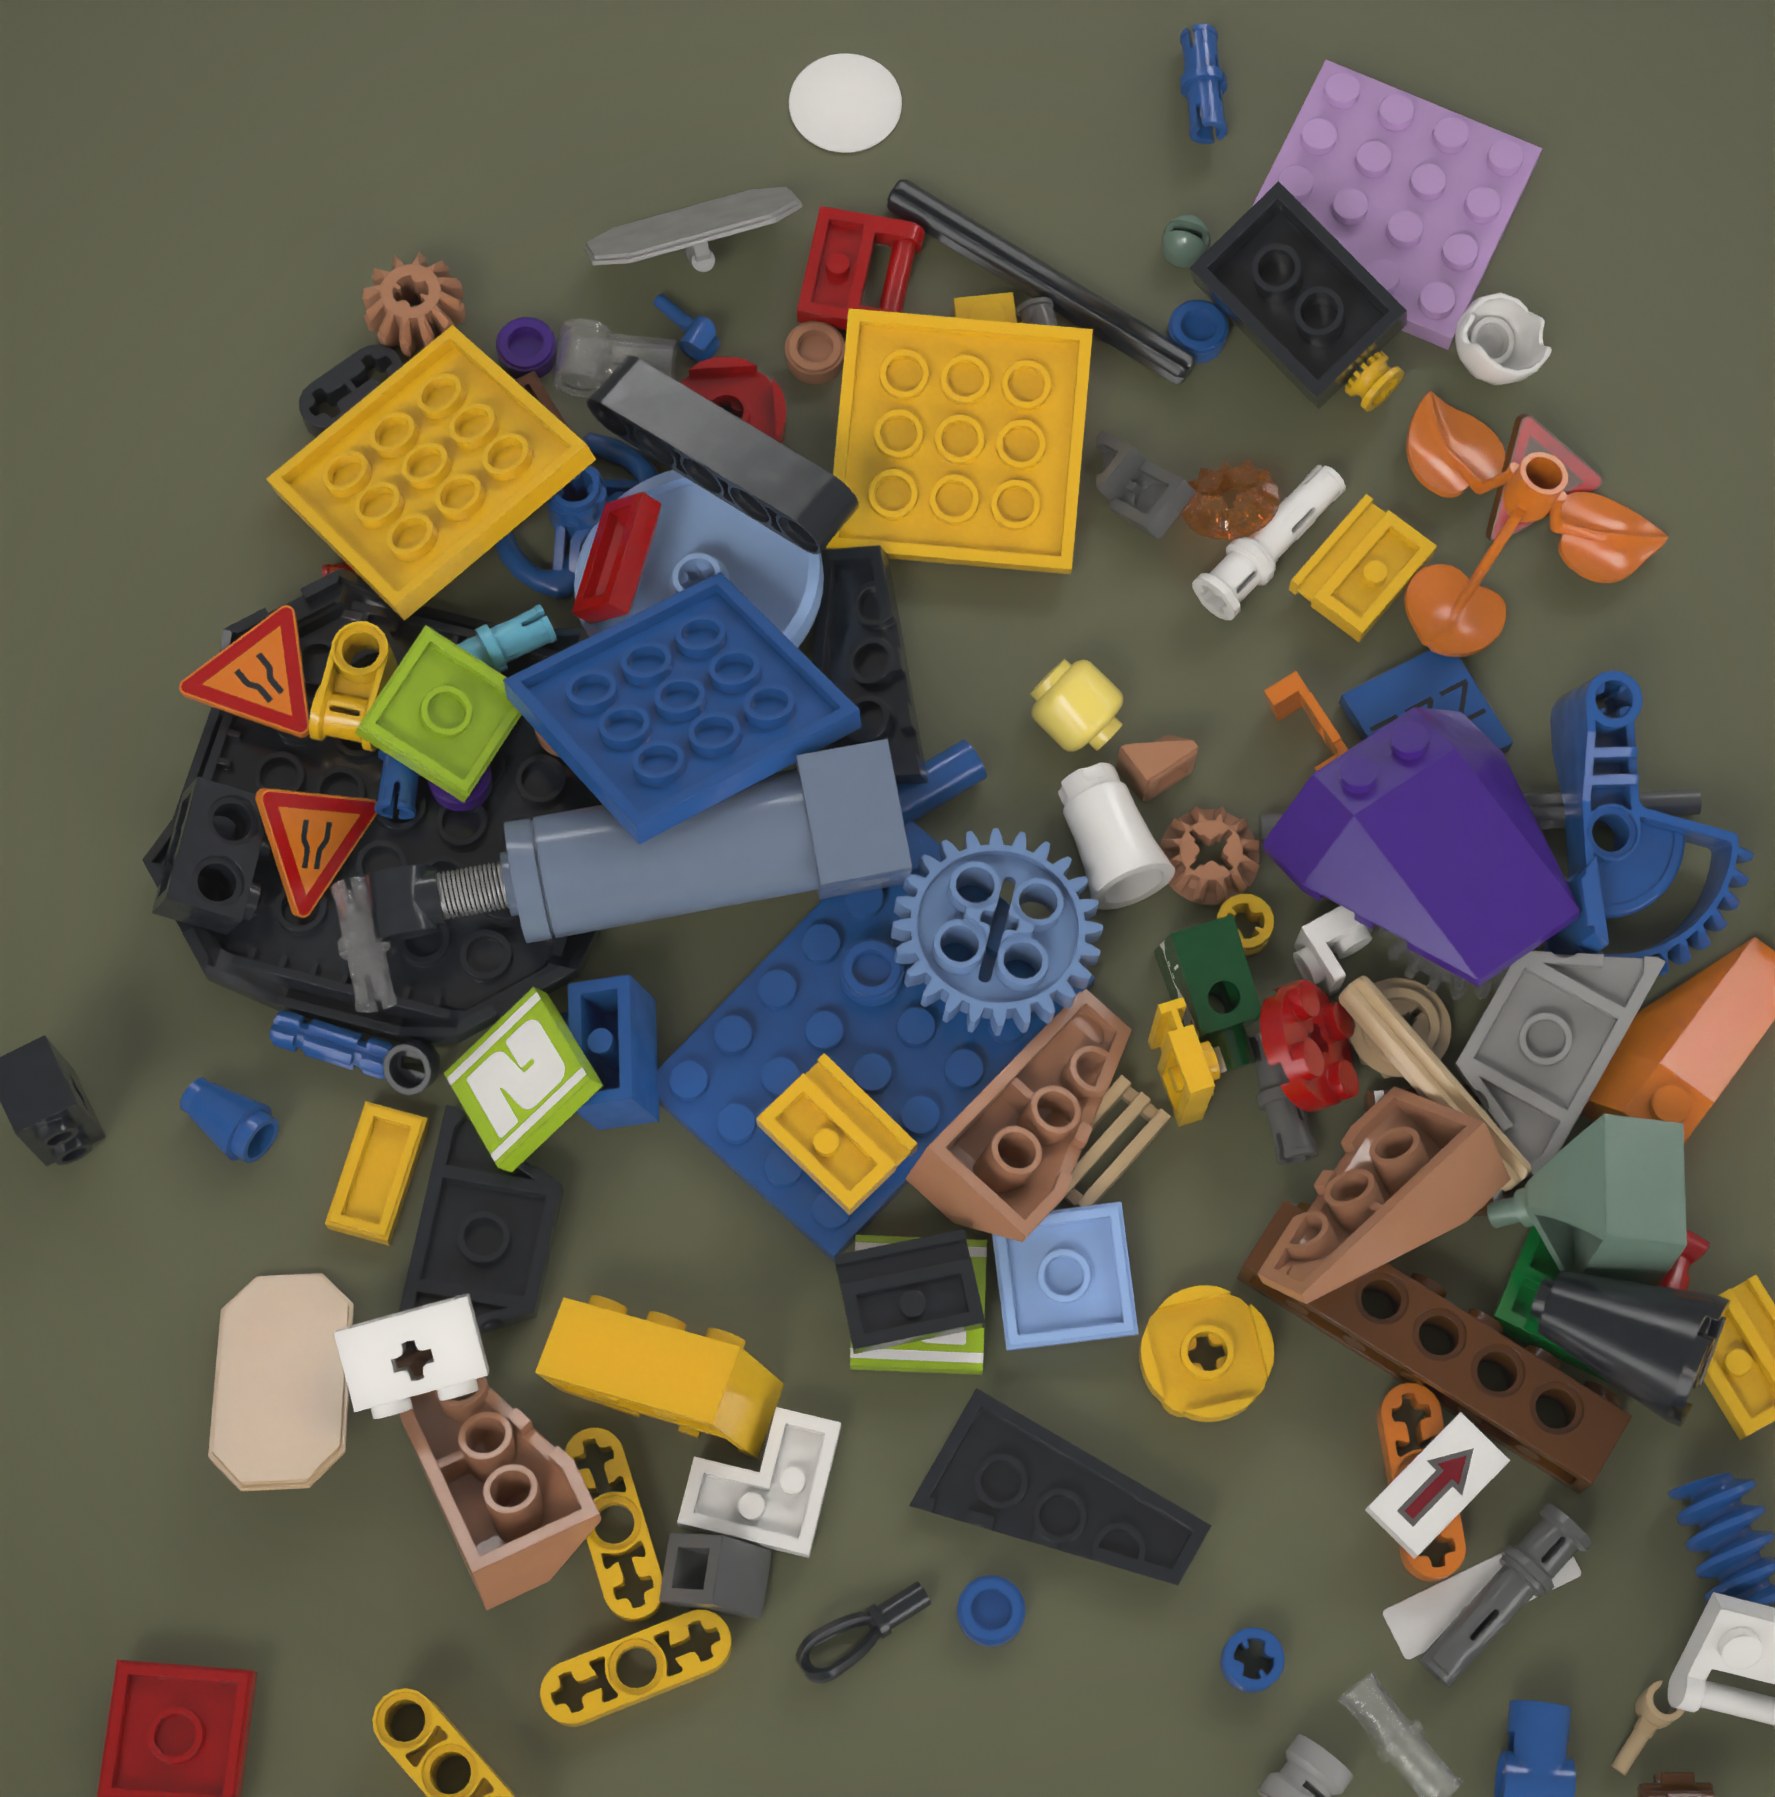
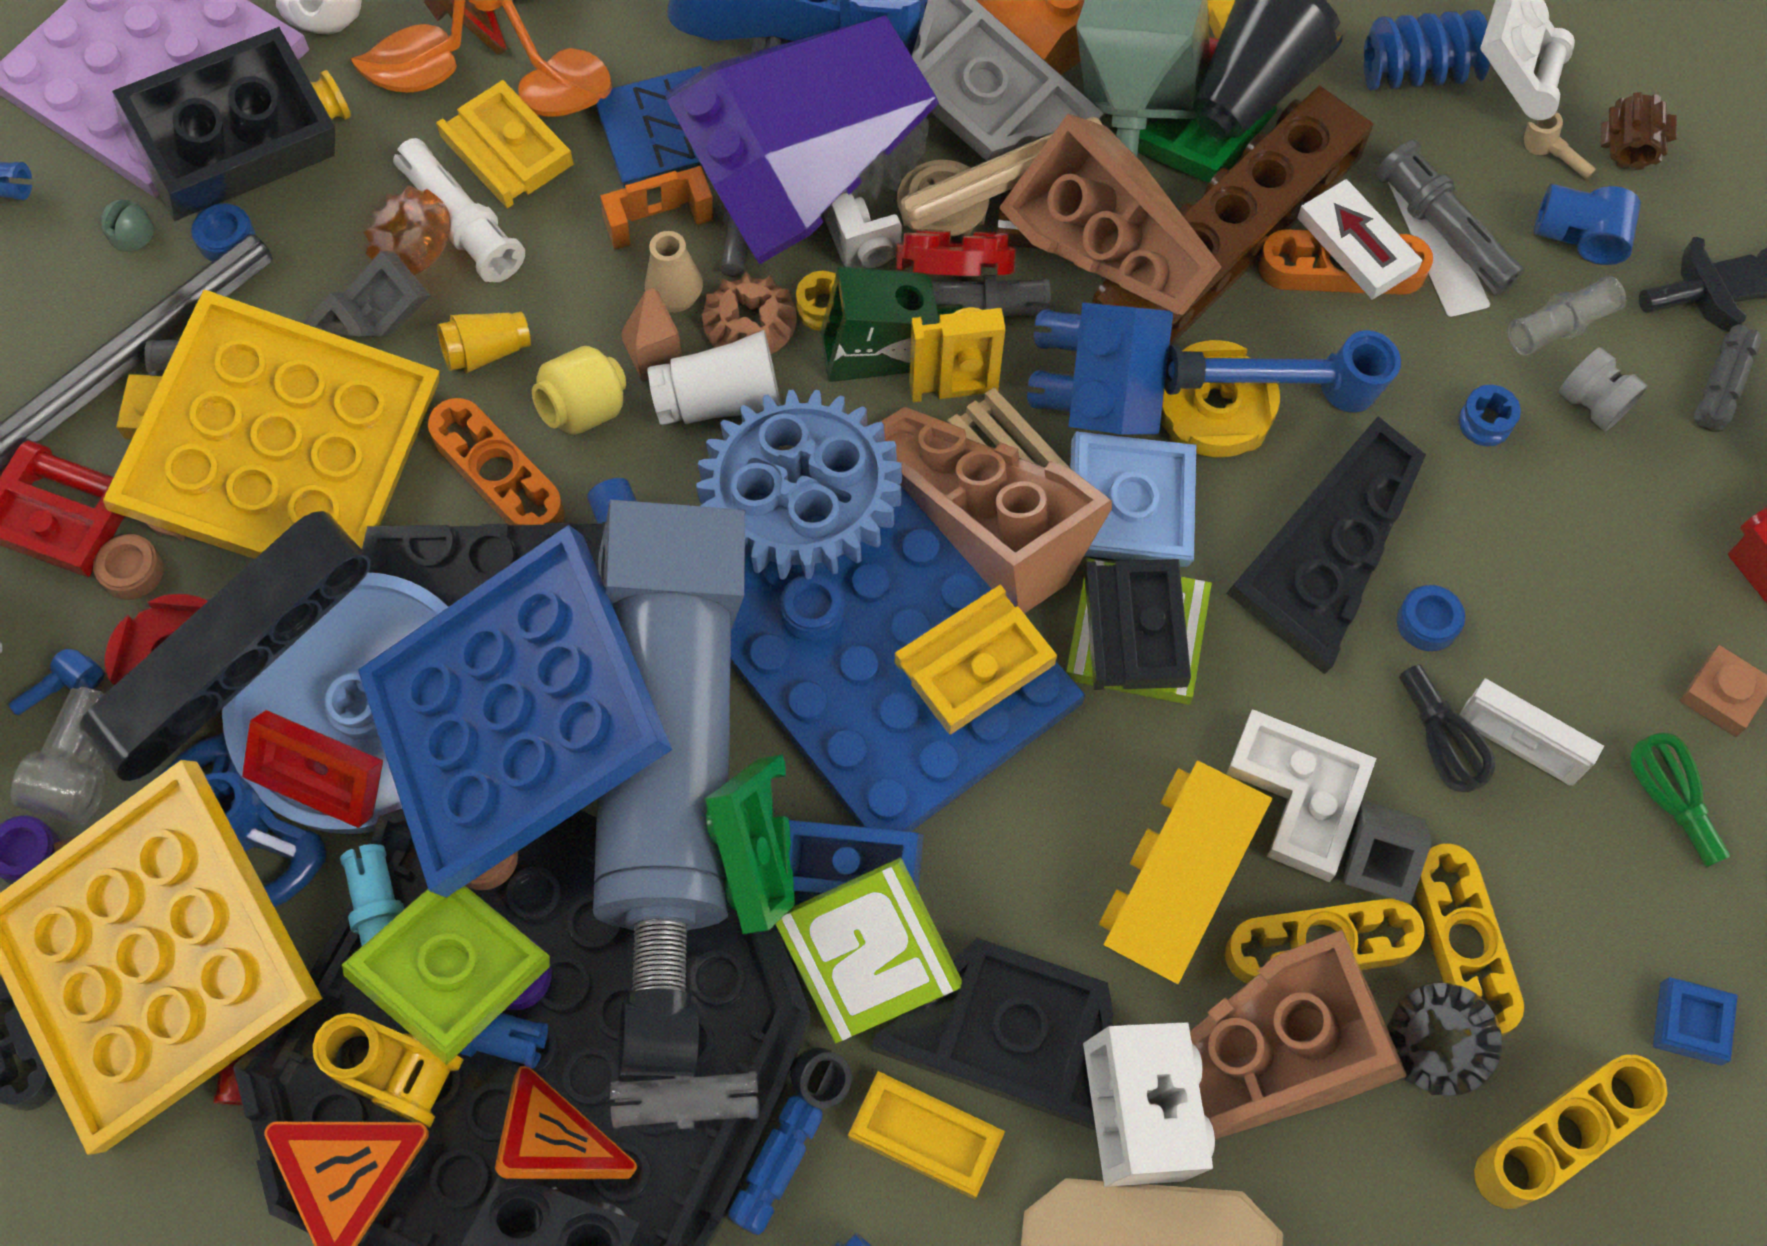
camera: 80 degrees left, 5 degrees down
(552, 1651) = (1457, 1008): none -> black gear
(590, 947) = (753, 845): none -> green wing
(866, 1715) = (1531, 733): none -> white tile
(993, 606) = (490, 444): none -> orange beam
(1120, 600) = (479, 339): none -> yellow cone
(1196, 1226) = (1116, 367): none -> blue brick
(1213, 1307) = (1347, 378): none -> blue piece
(1232, 767) = (673, 272): none -> tan cone

